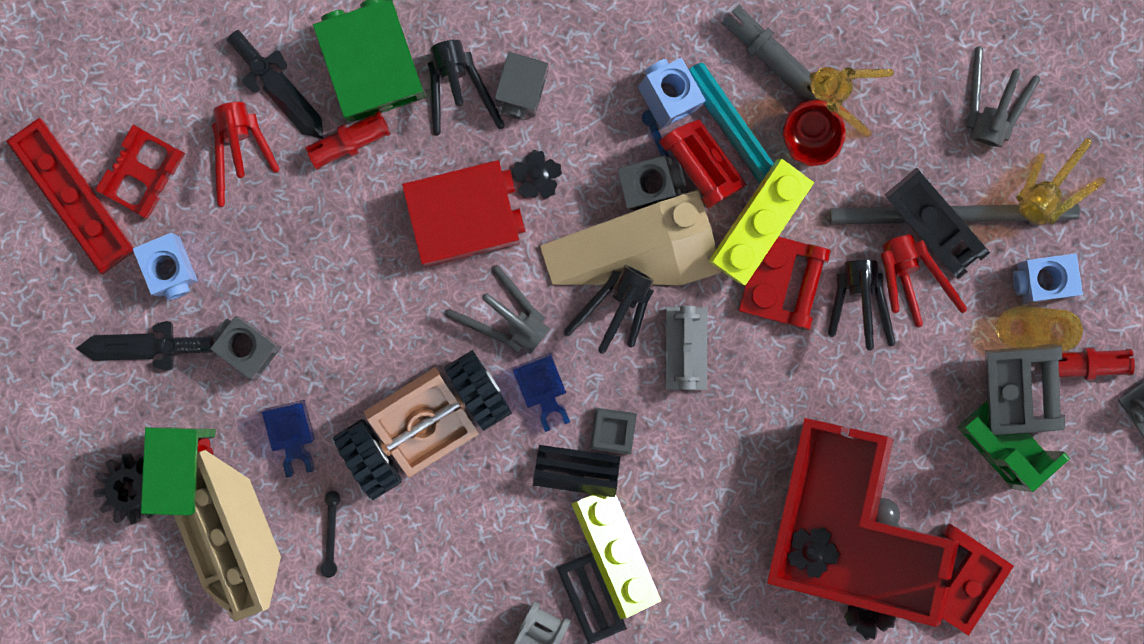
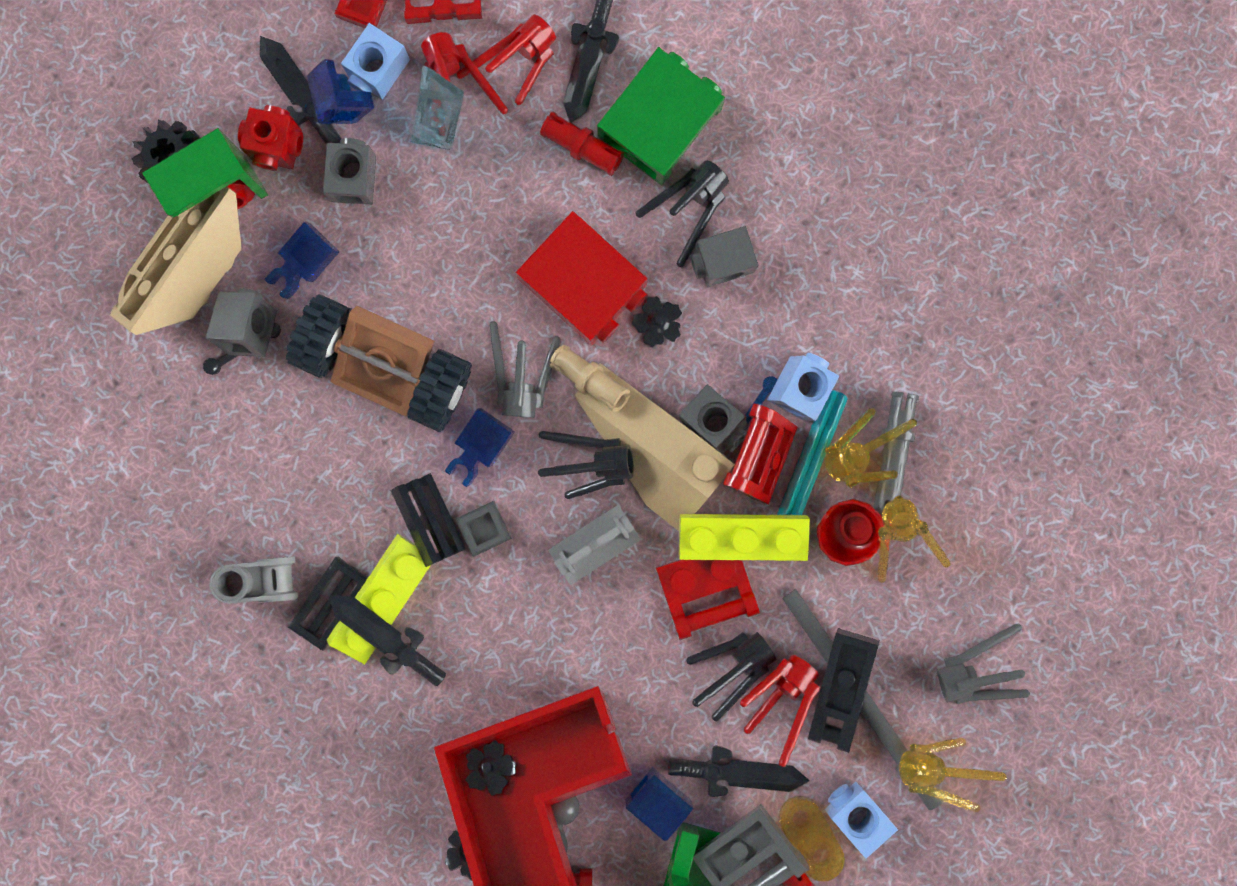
camera: 50 degrees right, 0 degrees up
(173, 320) = (333, 96): none -> clear blue panel
(186, 398) = (277, 148): none -> red brick
(201, 209) = (444, 59): none -> red plant
(243, 242) = (436, 111): none -> clear light blue slope
(313, 518) = (241, 323): none -> dark grey brick
(548, 261) = (589, 378): none -> tan pin
(652, 567) = (386, 638): none -> black sword
(754, 95) = (849, 460): none -> clear yellow plant
(931, 433) = (659, 804): none -> clear blue panel
(948, 354) = (738, 773): none -> black sword

